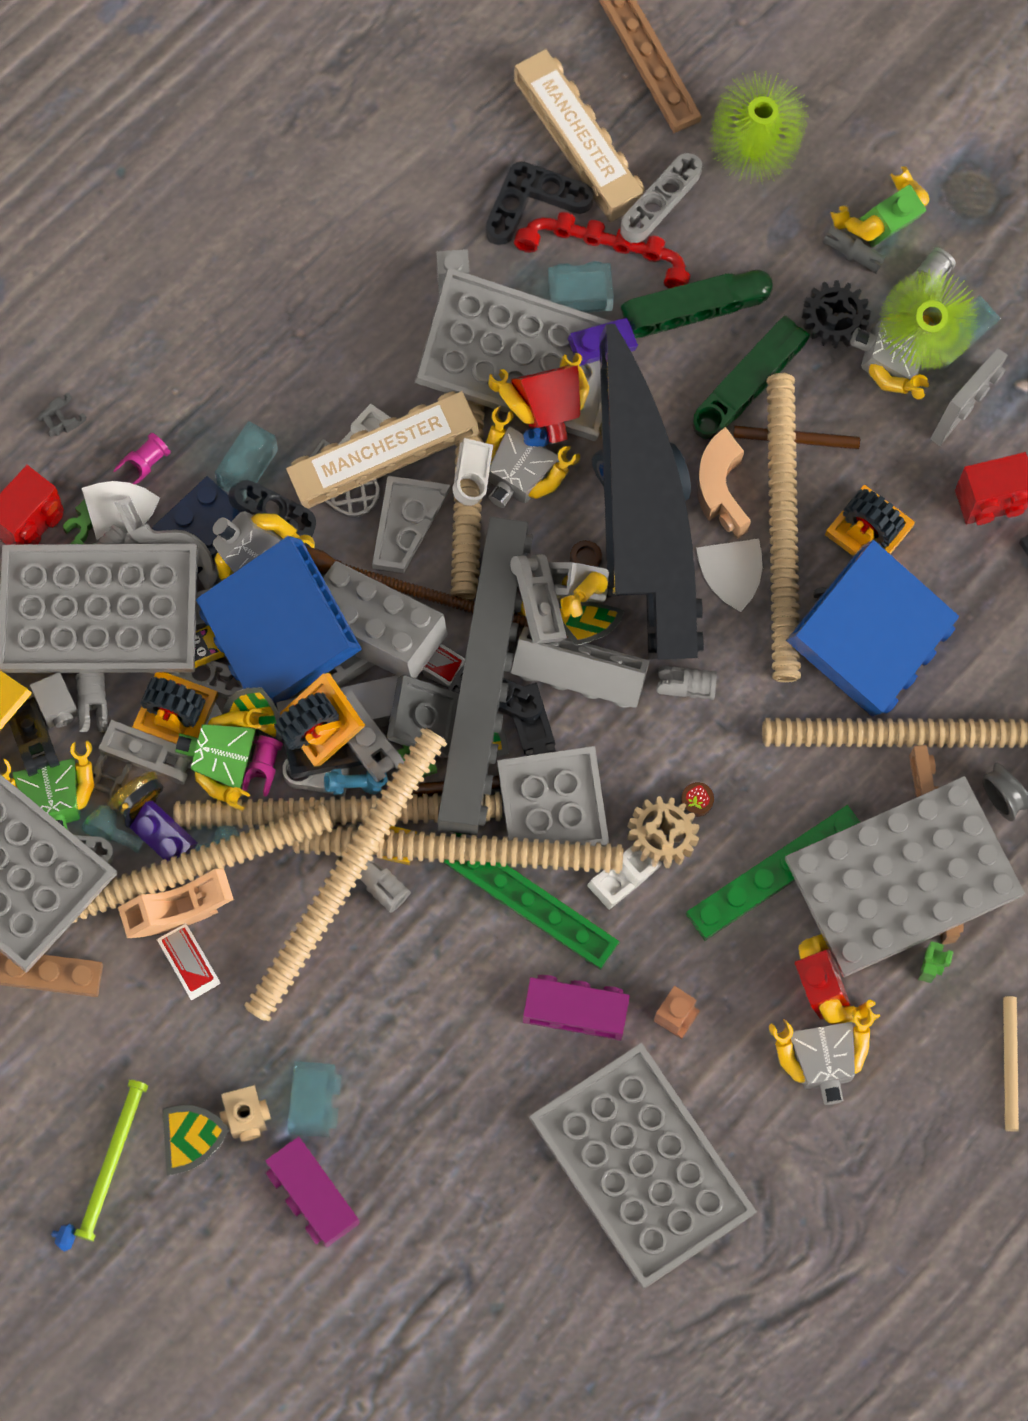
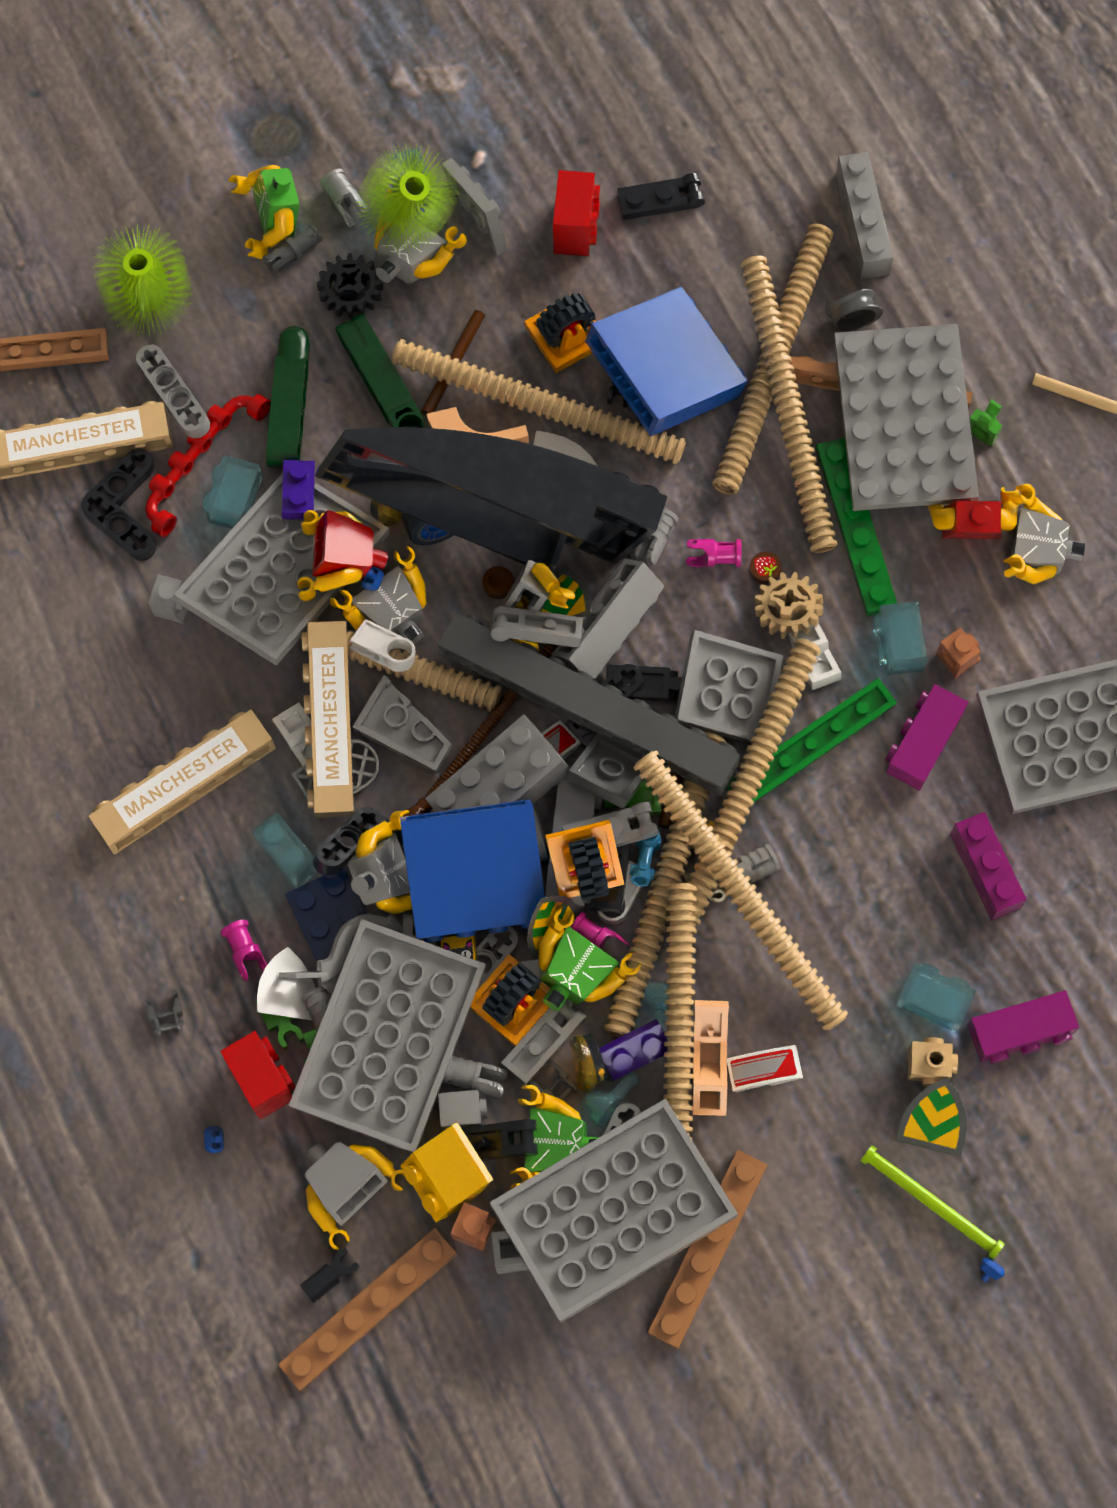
camera: 65 degrees left, 0 degrees up
(282, 348) = (181, 781): none -> tan brick
(462, 1107) = (988, 866): none -> magenta brick
(670, 951) = (901, 638): none -> clear light blue brick
(692, 745) = (715, 552): none -> dark pink piece
(873, 758) = (788, 404): none -> tan piece

